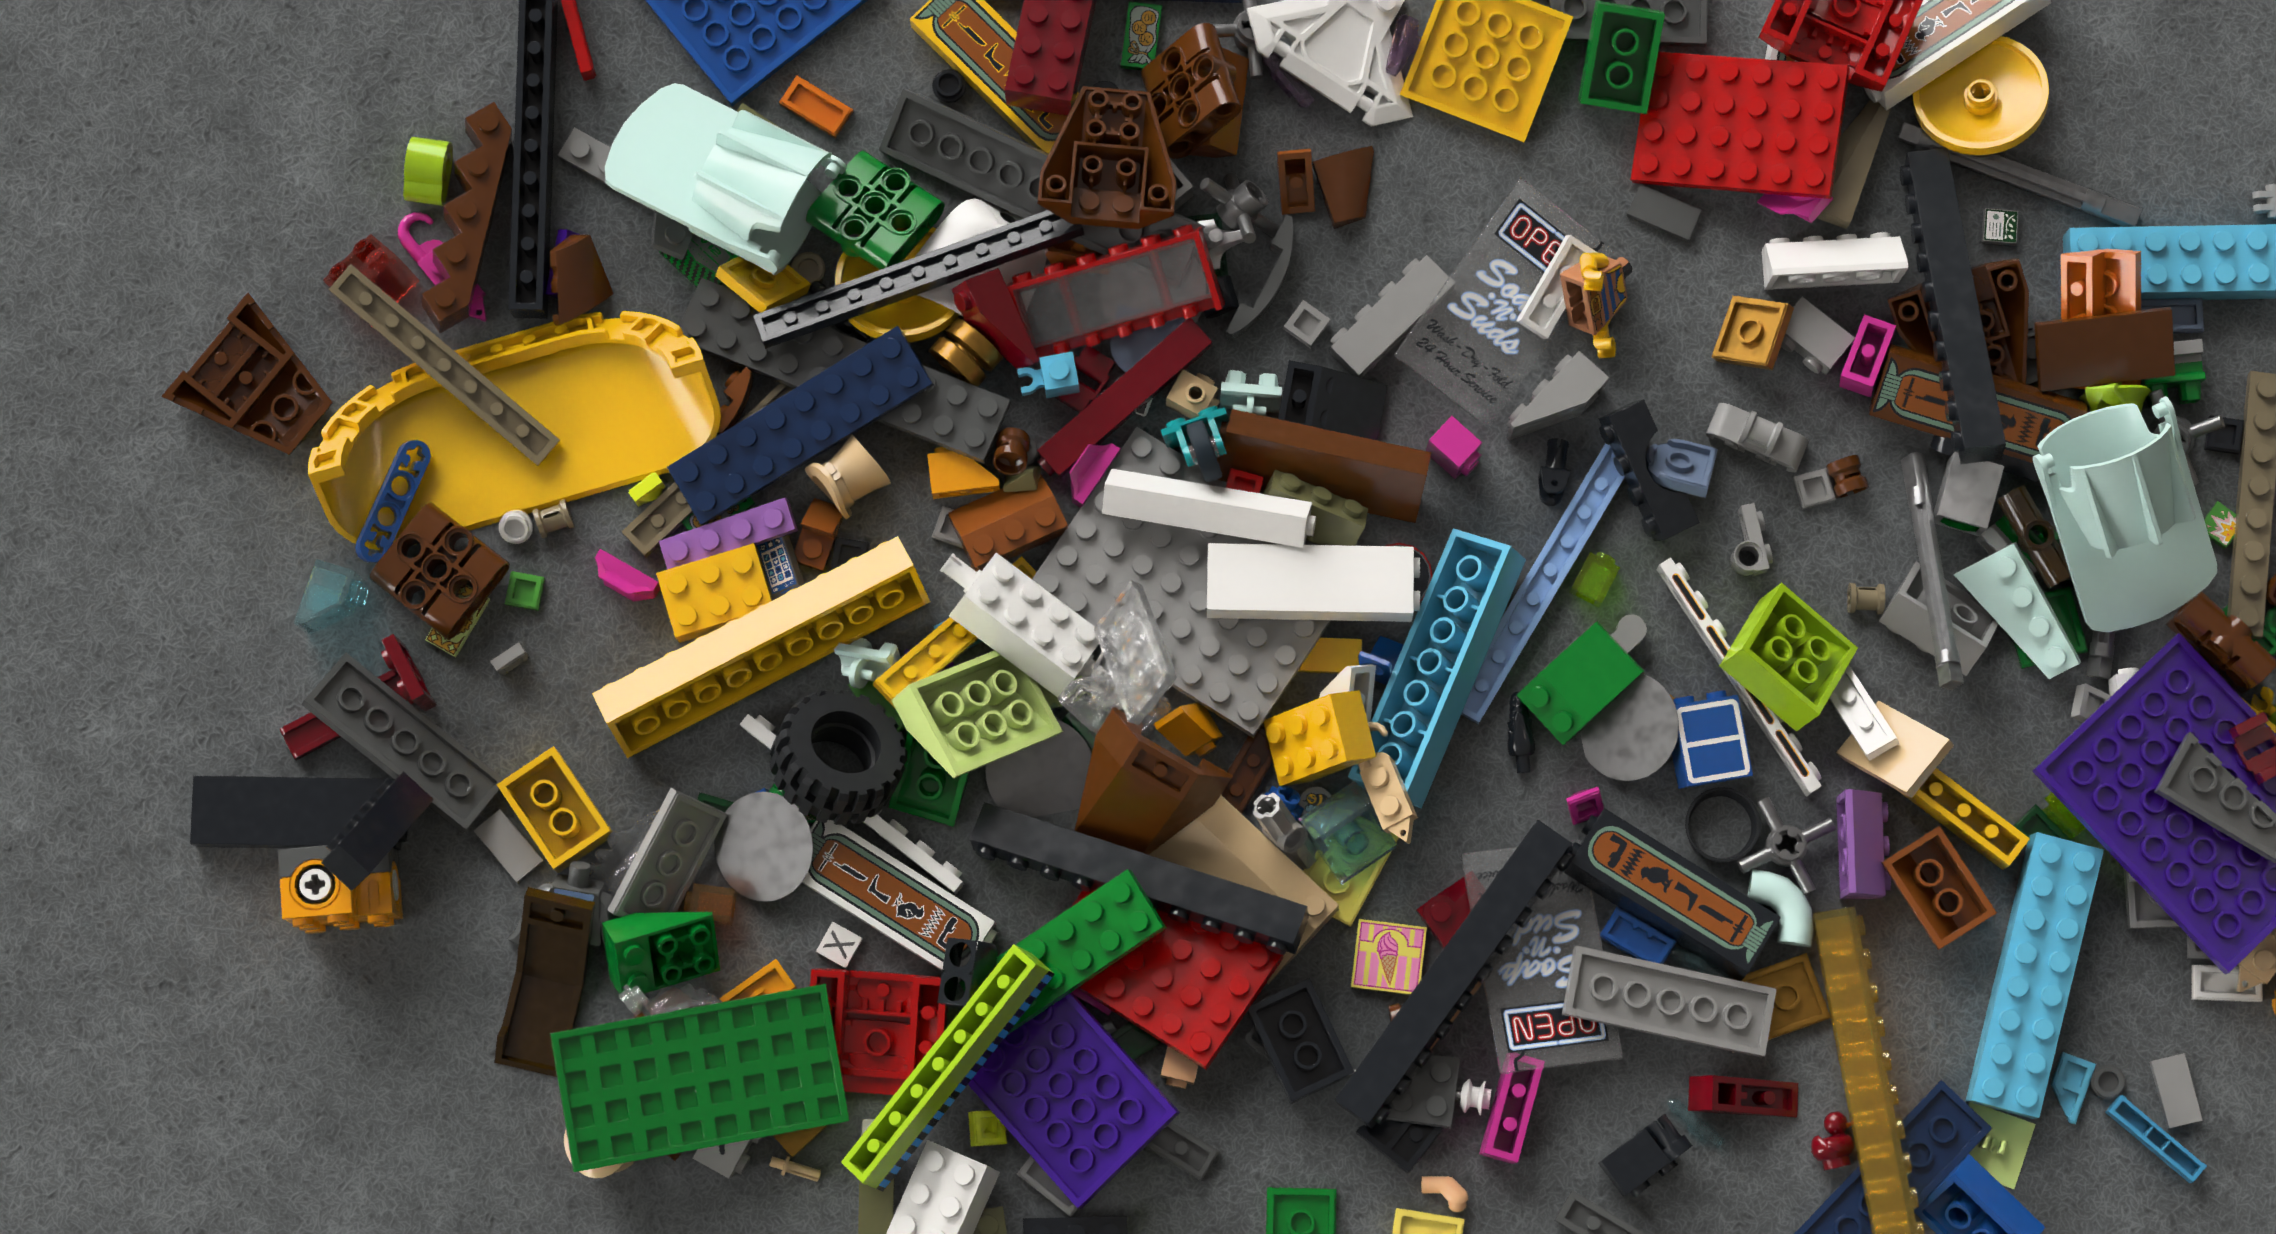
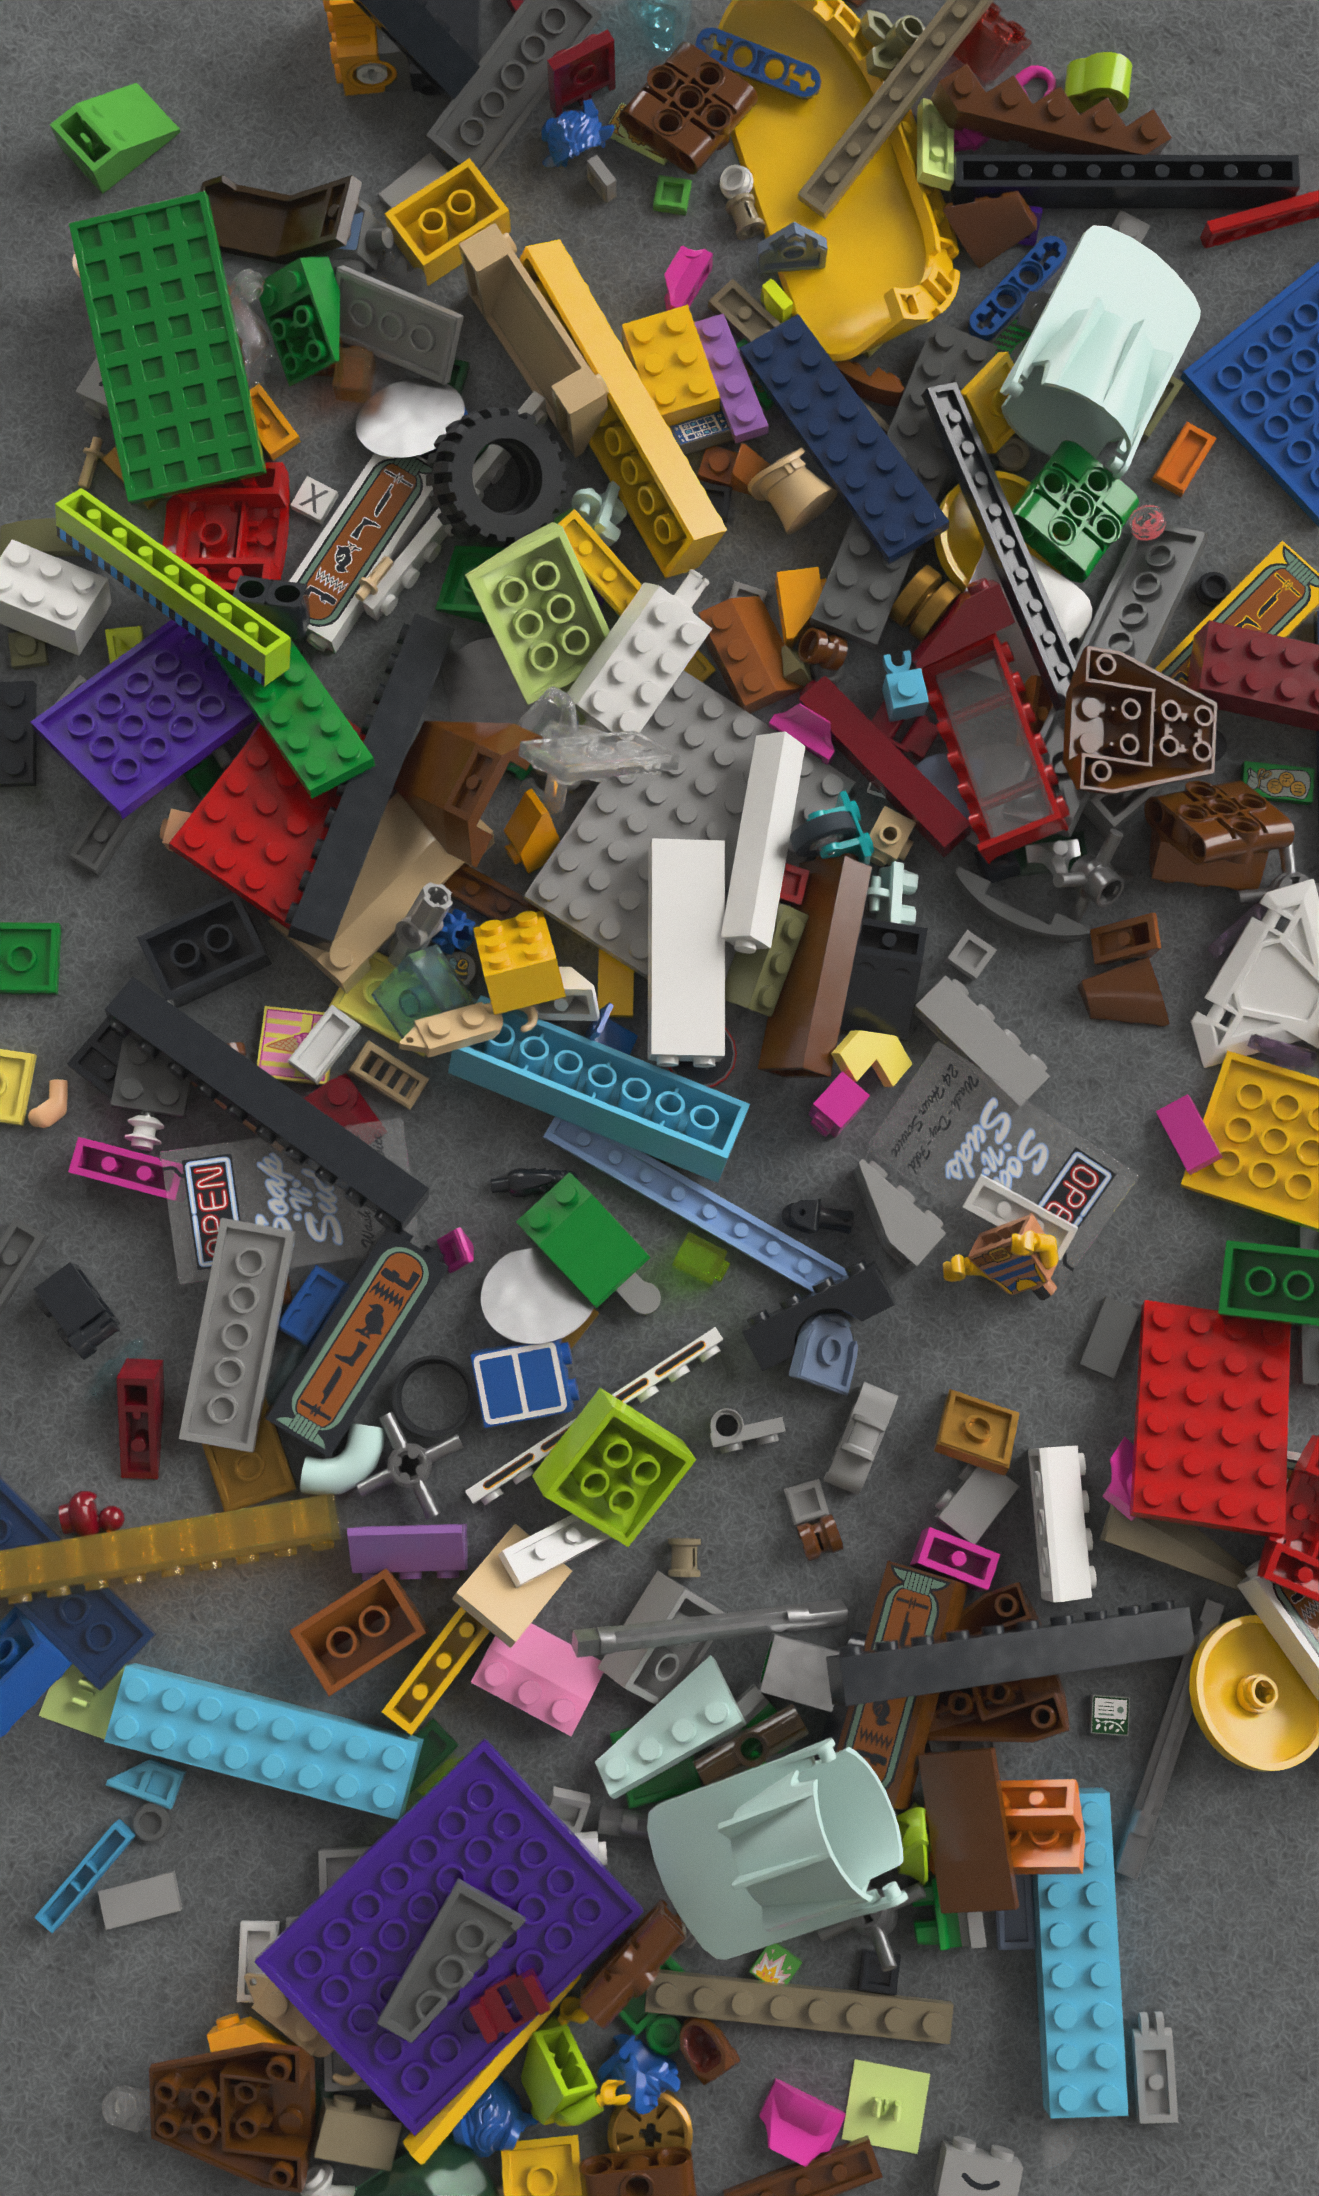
camera: 85 degrees right, 0 degrees up
(378, 364) = (889, 40): none -> olive plant
(444, 1148) = (113, 134): none -> bright green slope
(466, 684) = (573, 134): none -> blue hair
(493, 330) = (934, 148): none -> yellowish green plate
(599, 472) = (791, 250): none -> plate
(637, 256) = (1014, 287): none -> blue beam
(695, 718) = (534, 336): none -> tan slope
(886, 143) = (1147, 522): none -> clear tile
(940, 882) = (369, 584): none -> tan piece
(1390, 928) = (324, 1044): none -> white tile
(1402, 413) = (866, 1048): none -> light yellow tile
(1402, 894) = (381, 1086): none -> tan slope
(1479, 132) = (1189, 1134): none -> dark pink tile
(1978, 723) = (540, 1677): none -> bright pink slope

